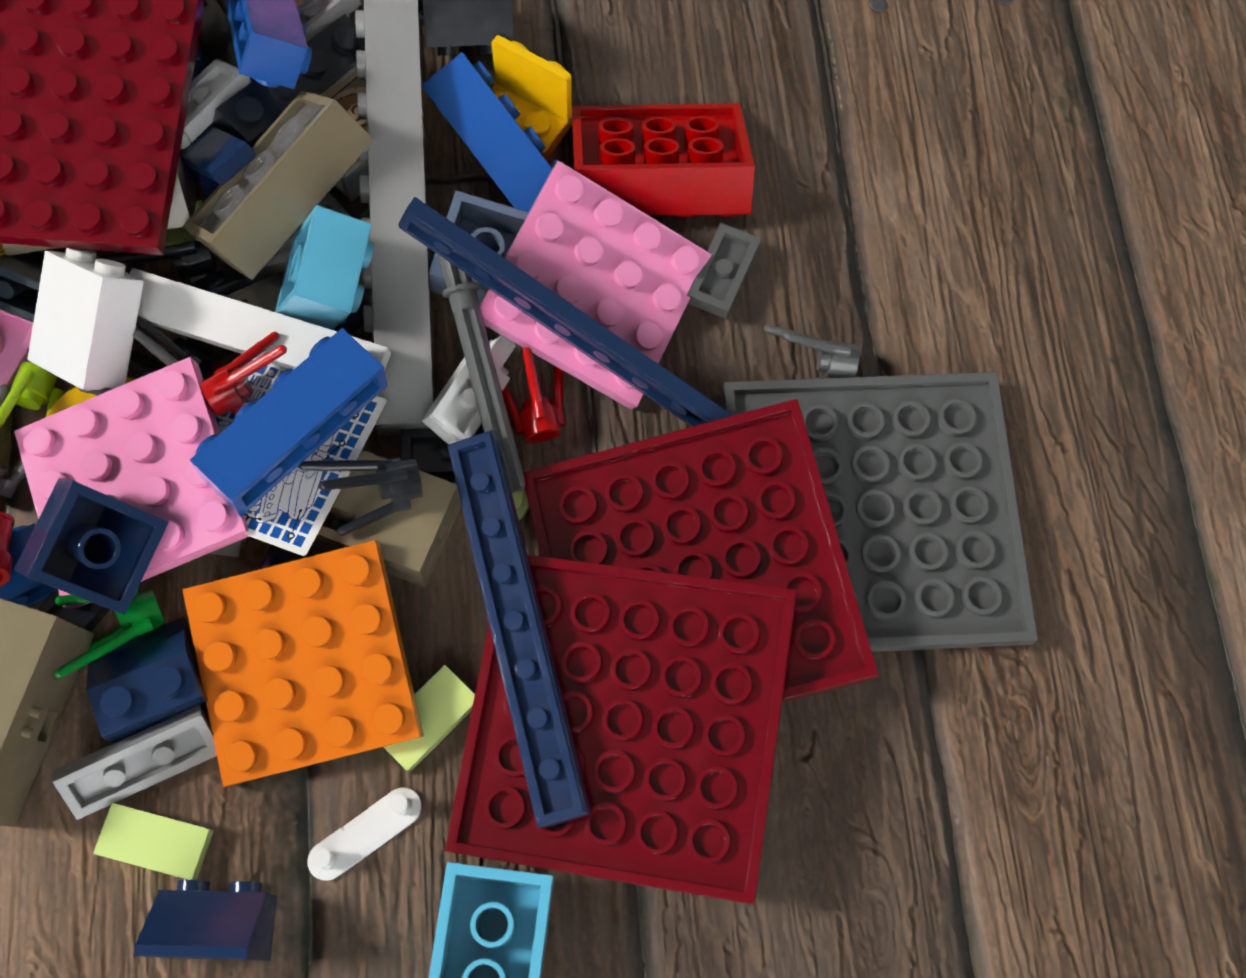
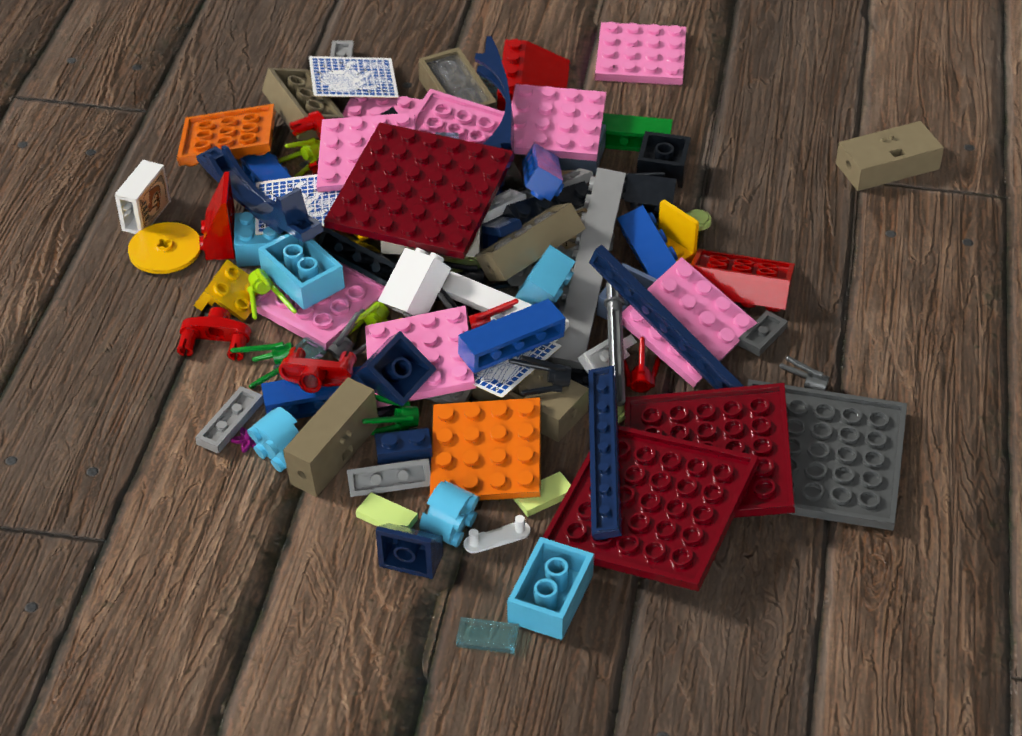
camera: 20 degrees right, 25 degrees down
(265, 832) = (449, 512): none -> medium azure brick
(556, 41) = (702, 217): none -> yellowish green piece

